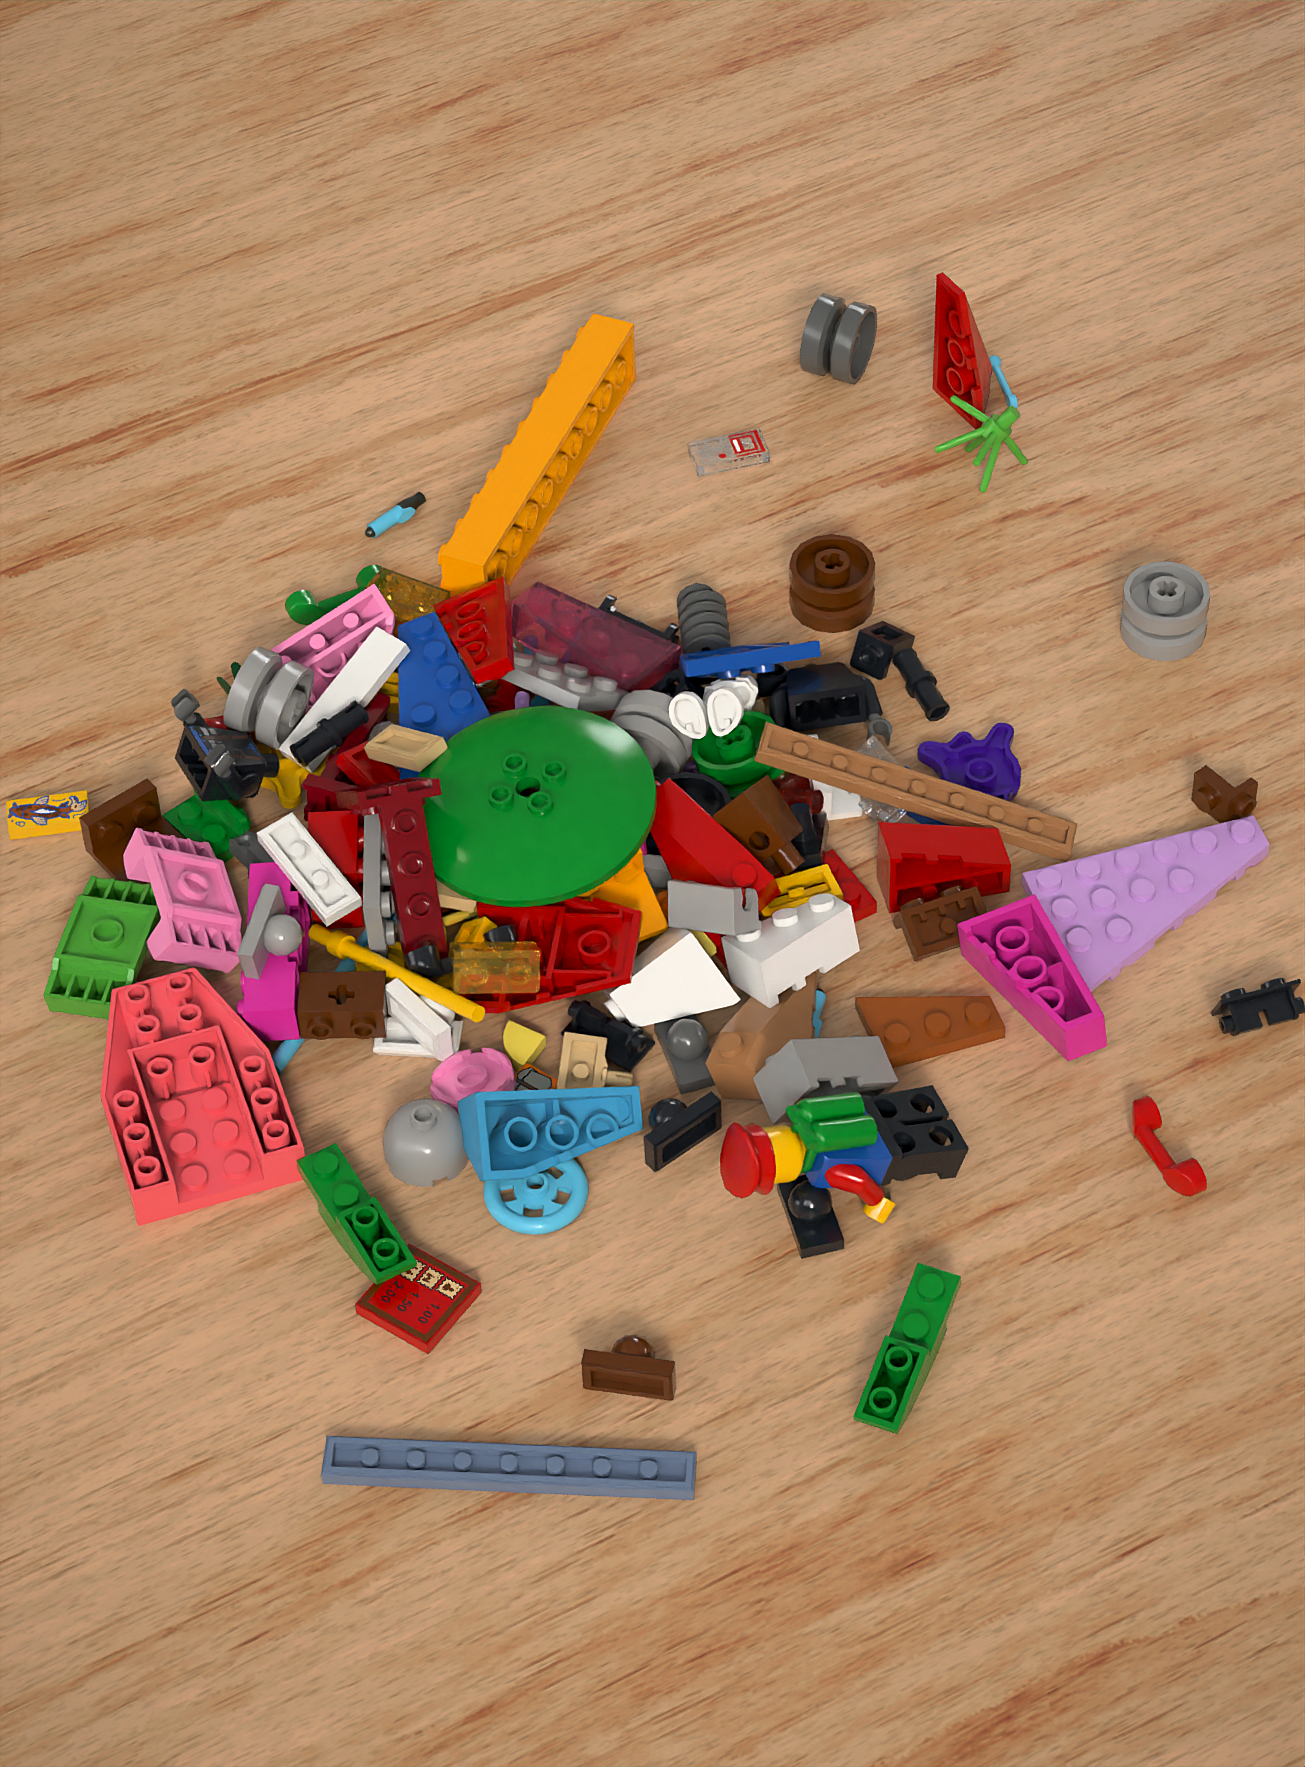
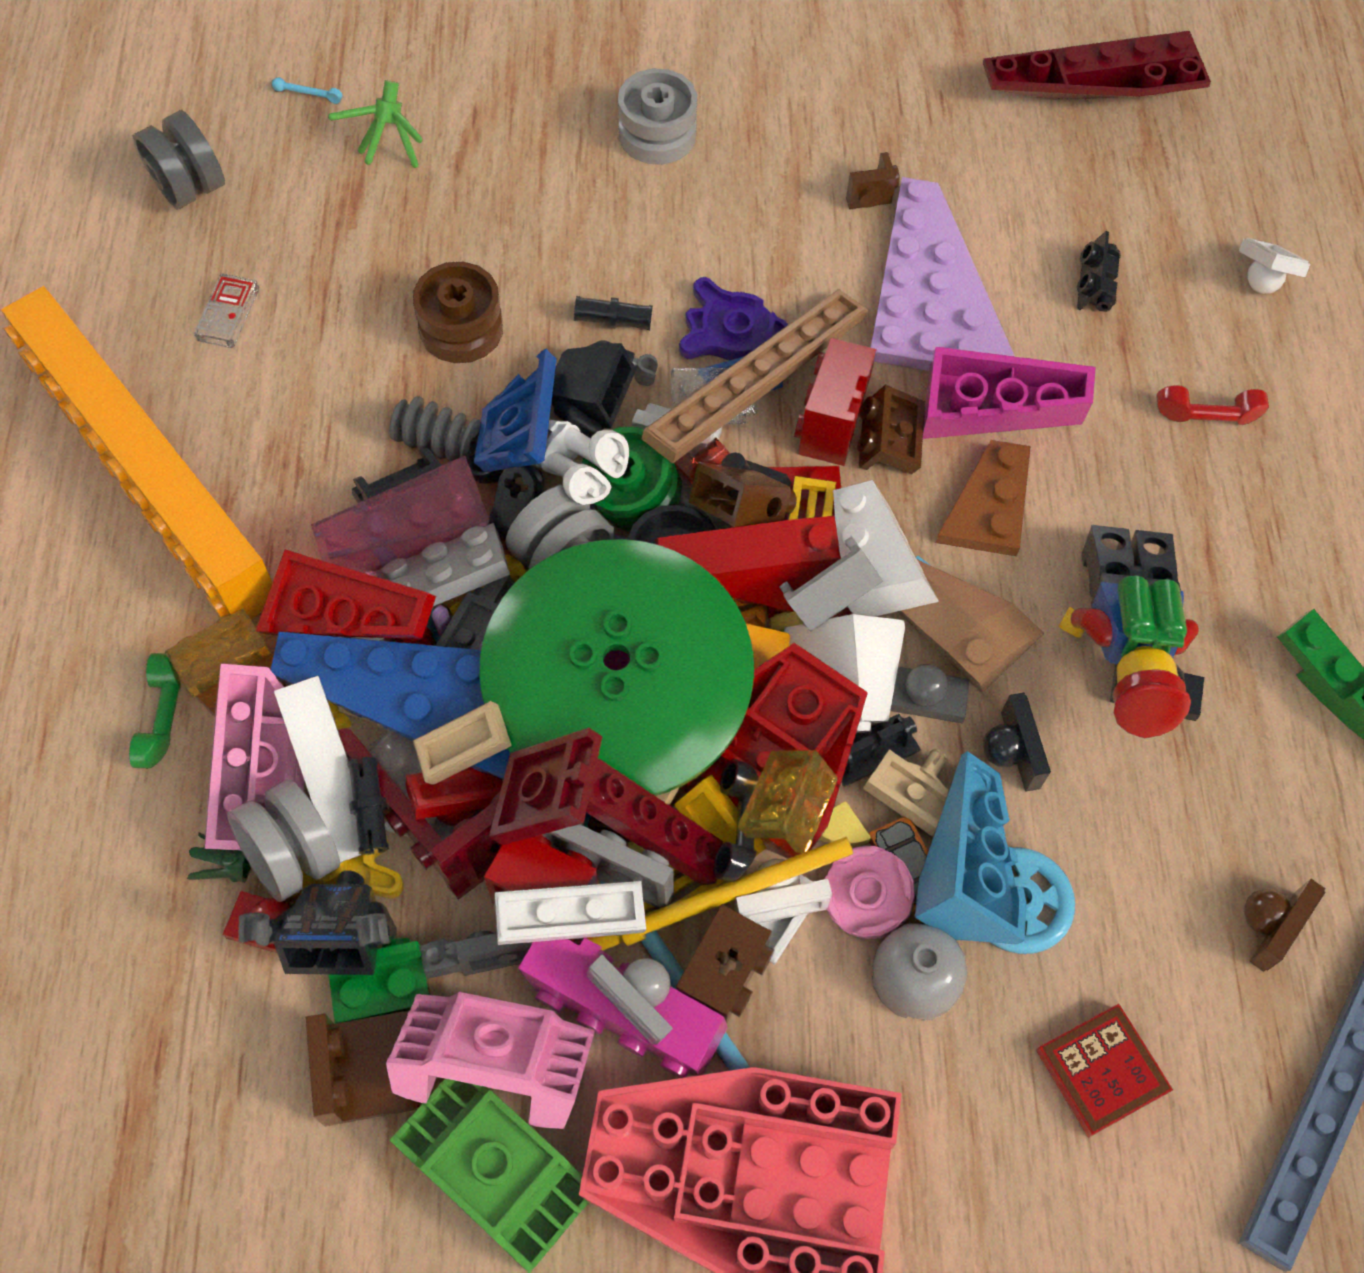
camera: 65 degrees left, 15 degrees up
(46, 814) = (247, 1144): tile -> none
(354, 1216) = (997, 1083): green slope -> none
(399, 514) = (84, 605): medium azure piece -> none
(823, 1068) = (1054, 600): light grey wedge -> none
(876, 648) = (553, 319): black bracket -> none
(960, 356) = (285, 86): red wedge -> none

